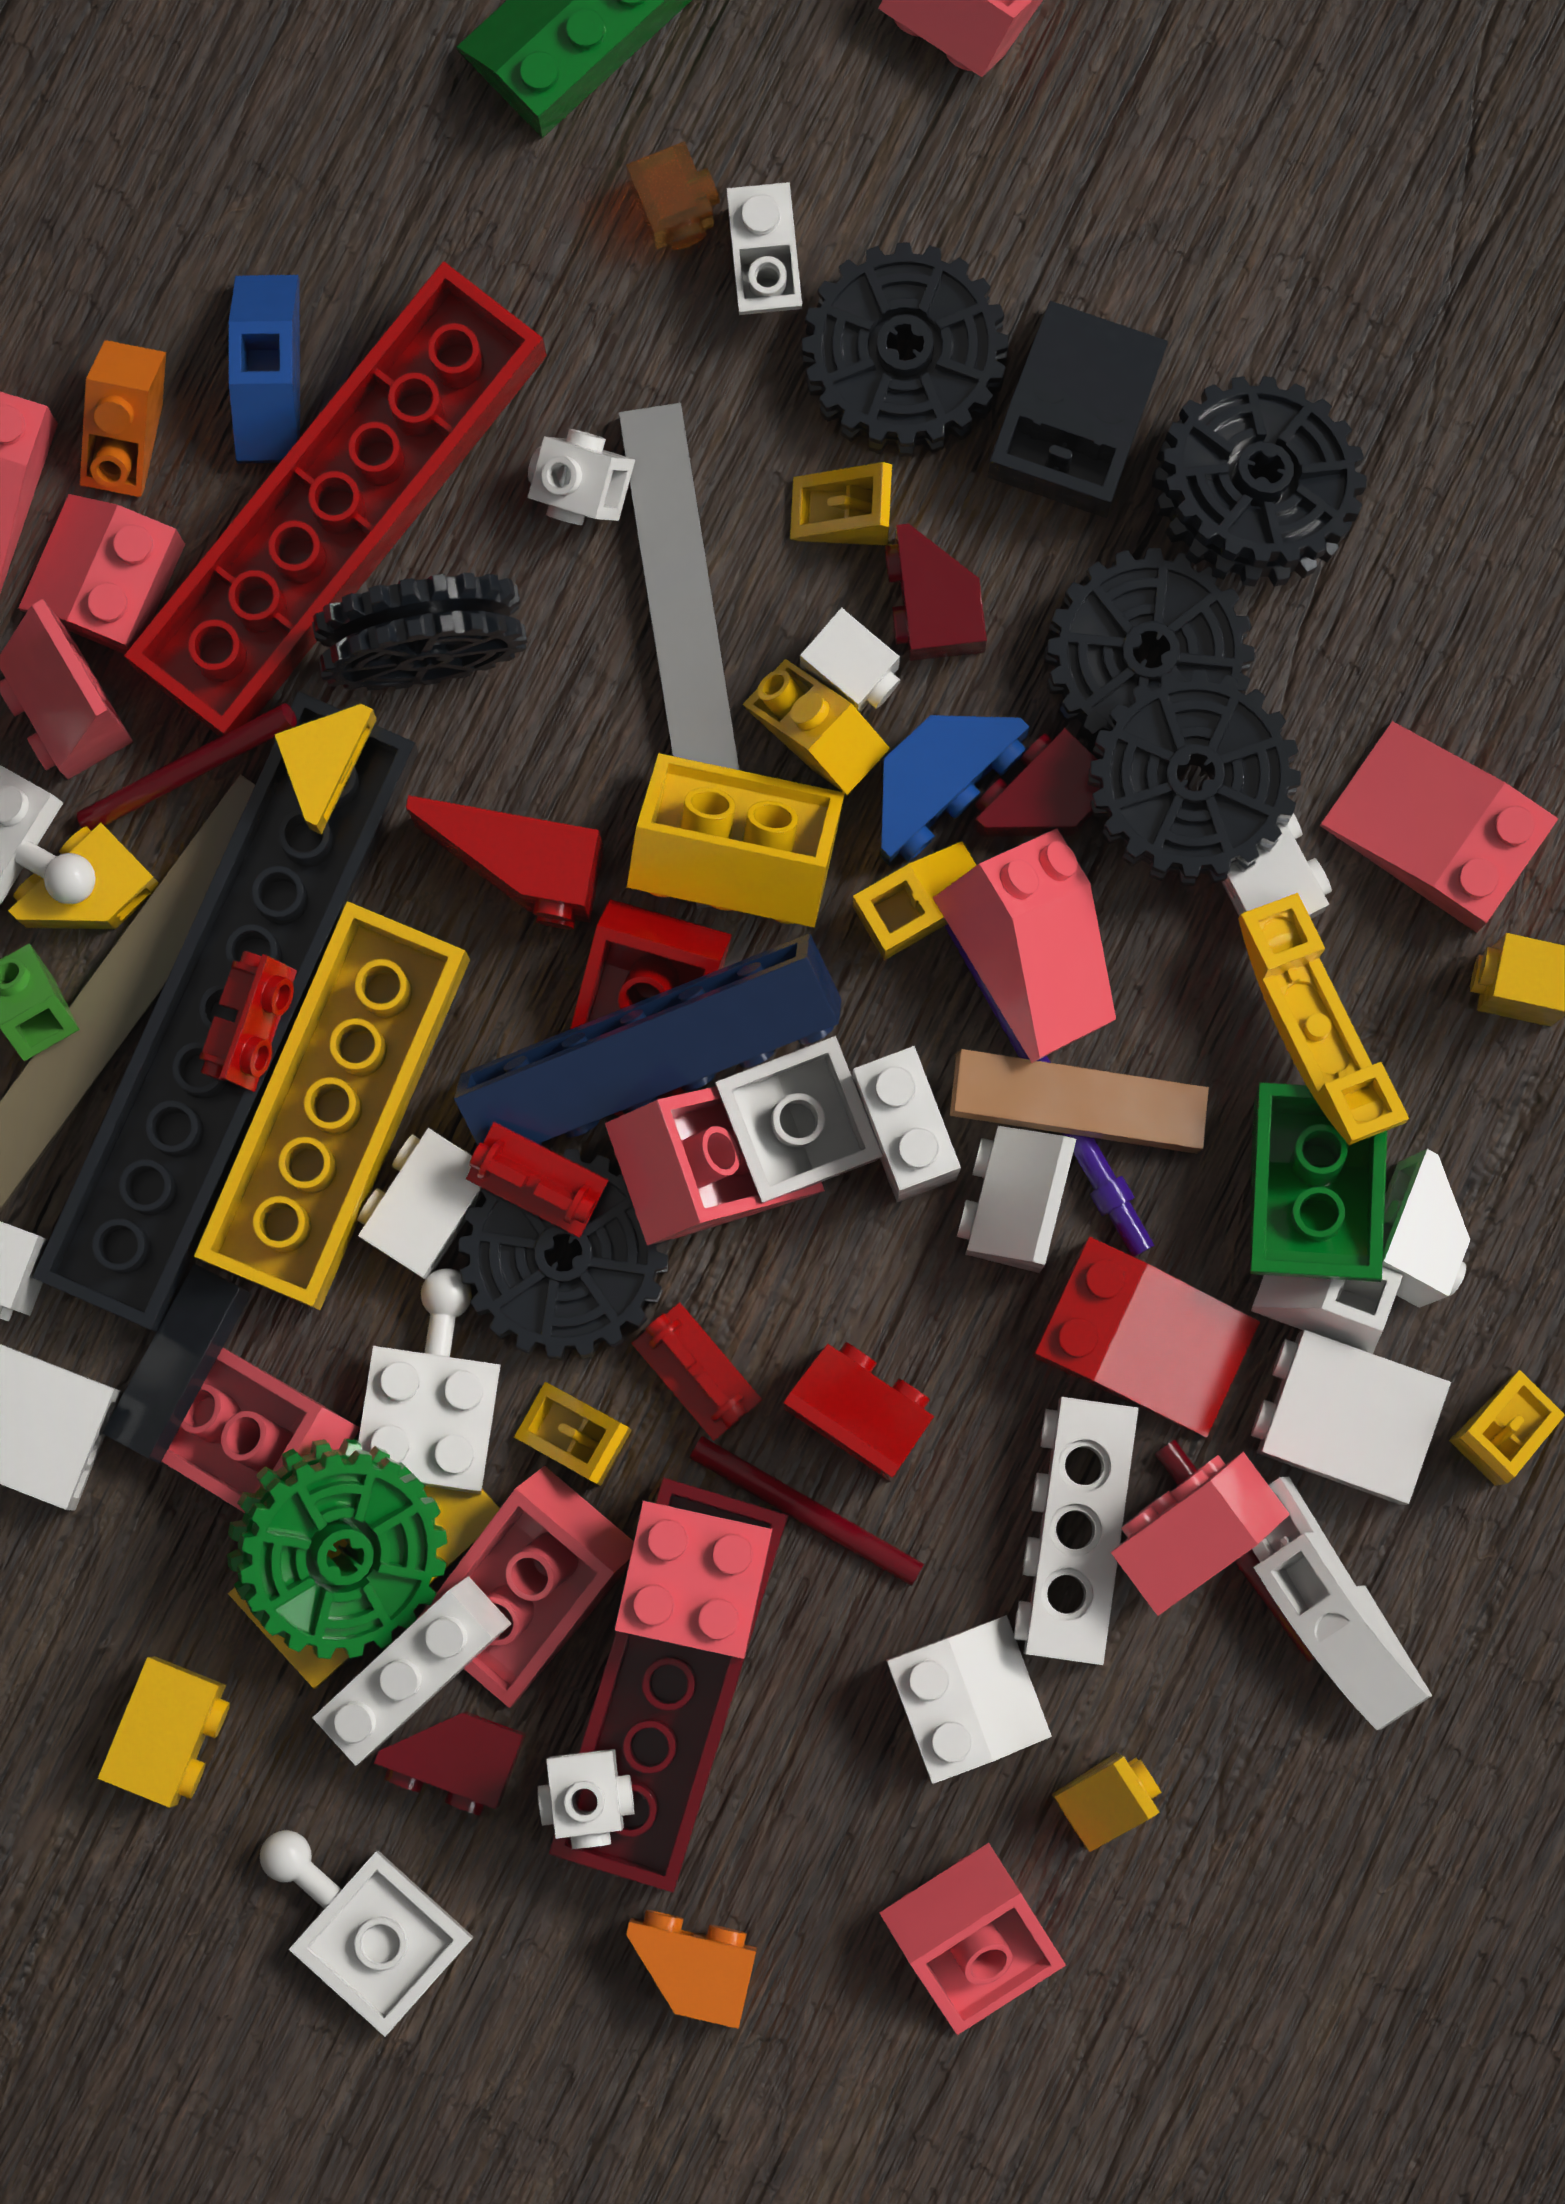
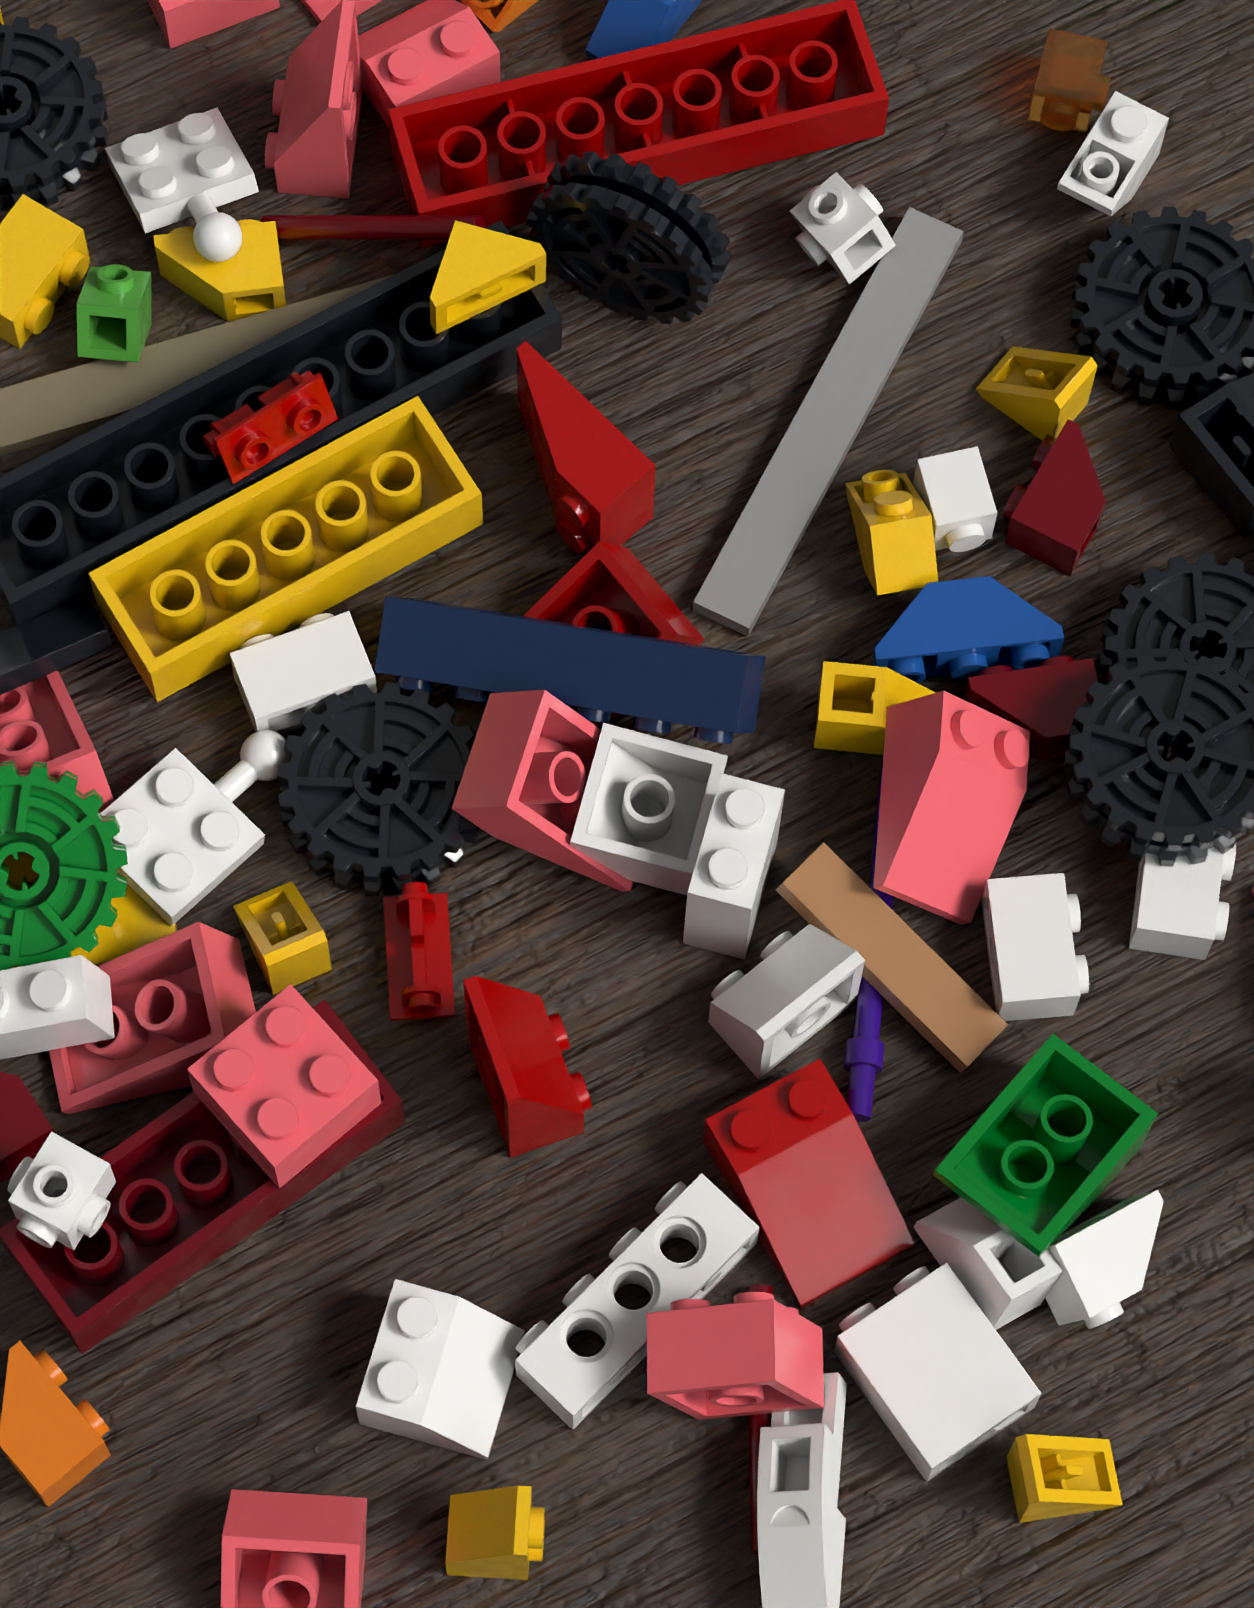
camera: 30 degrees right, 15 degrees down
(536, 1179) = (402, 701): red hinge -> none
(735, 840) = (759, 566): yellow slope -> none
(806, 1510) = (424, 1130): dark red bar -> none
(1184, 1008) = (1033, 946): none -> white brick
(1314, 1022) = (1134, 1013): yellow slope -> none

